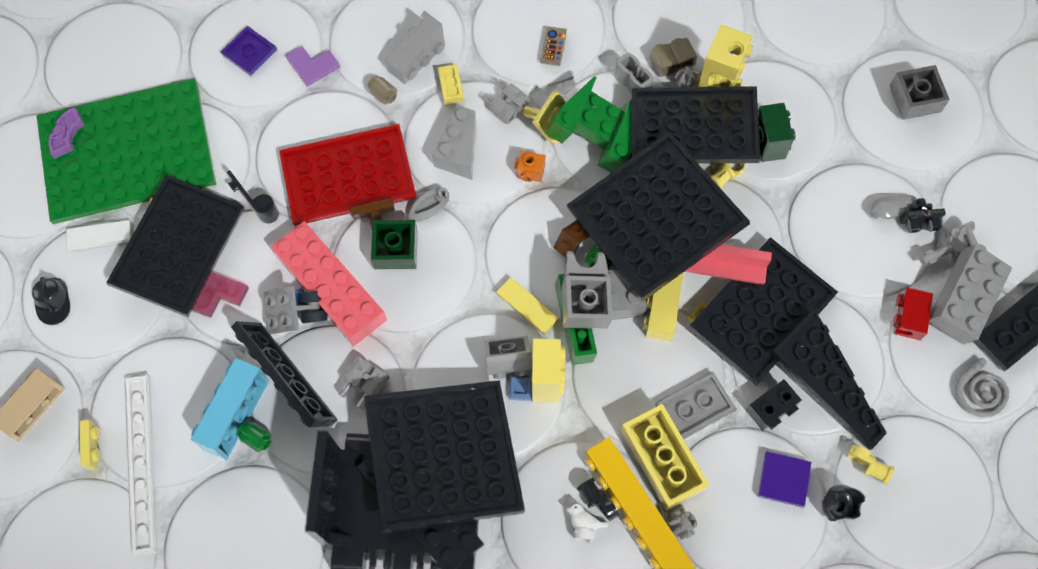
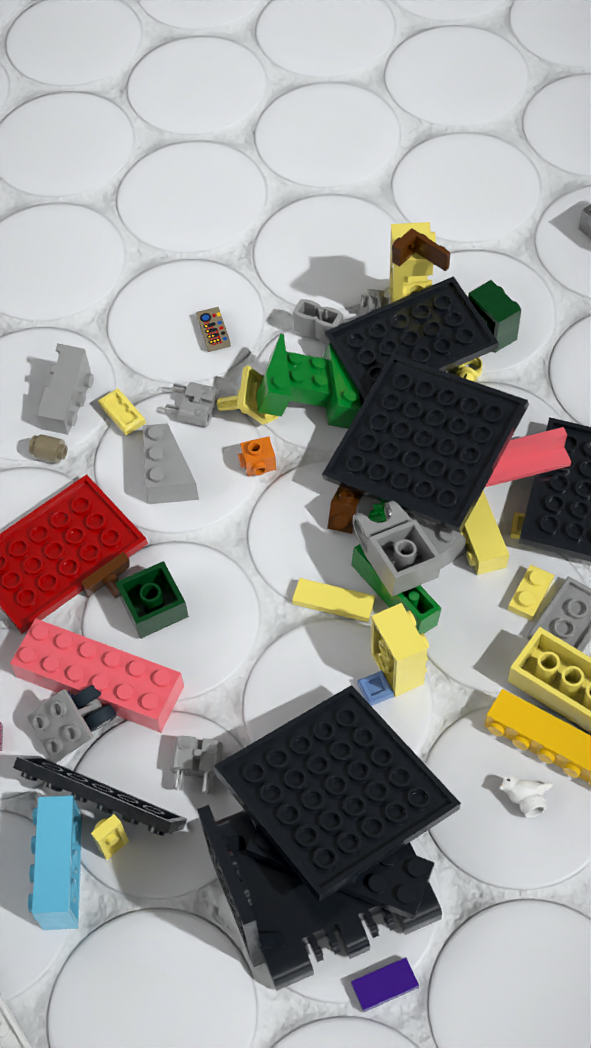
camera: 25 degrees left, 10 degrees down
(254, 436) = (99, 882): green brick -> none
(274, 408) = (109, 836): none -> light yellow plate
(429, 204) = (166, 542): light grey arm -> none
(508, 356) = (345, 658): light grey brick -> none
(595, 497) = (520, 761): black connector -> none
(673, 56) = (346, 288): dark tan brick -> none
(677, 370) = (531, 592): none -> light yellow plate
(726, 48) = (418, 243): none -> reddish brown bracket

